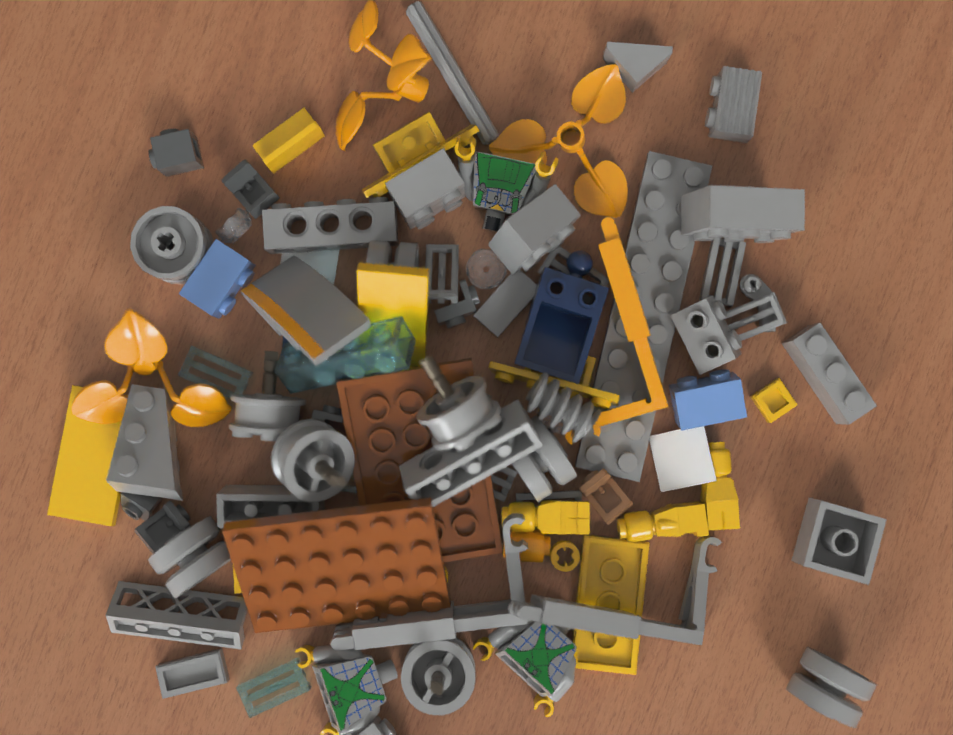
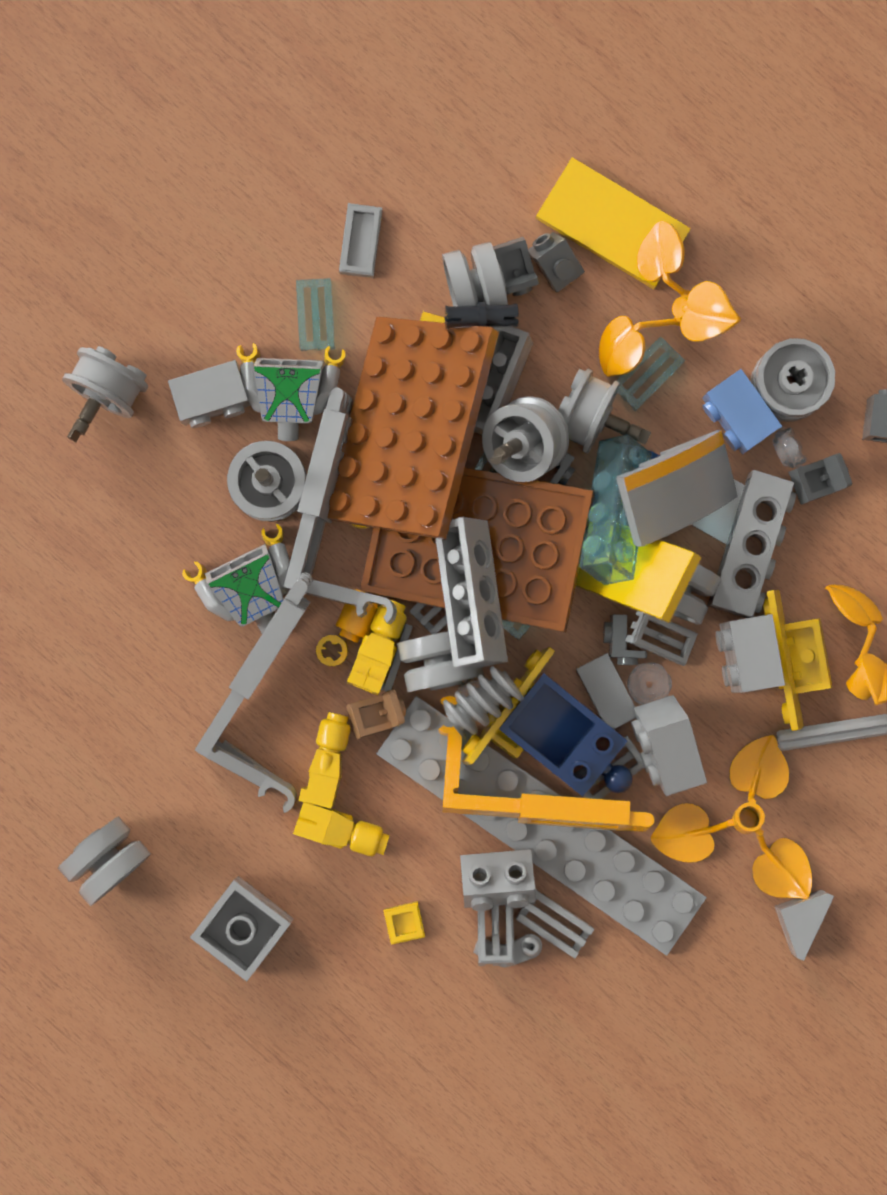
camera: 110 degrees right, 0 degrees up
(146, 447) = (601, 281): light grey wedge -> none
(176, 626) = (418, 243): light grey fence -> none
(215, 543) = (481, 315): none -> black pin
(288, 140) = (857, 535): yellow panel -> none
(457, 410) = (520, 597): light grey wheel -> none
(500, 182) = (730, 731): torso -> none
(615, 578) = (291, 691): yellow tile -> none
(682, 458) = (383, 806): white sticker -> none
(707, 399) = (432, 854): medium blue brick -> none
(734, 104) = (721, 1003): light grey brick -> none
(742, 213) = (605, 960): light grey brick -> none
(829, 374) = (409, 987): light grey brick -> none

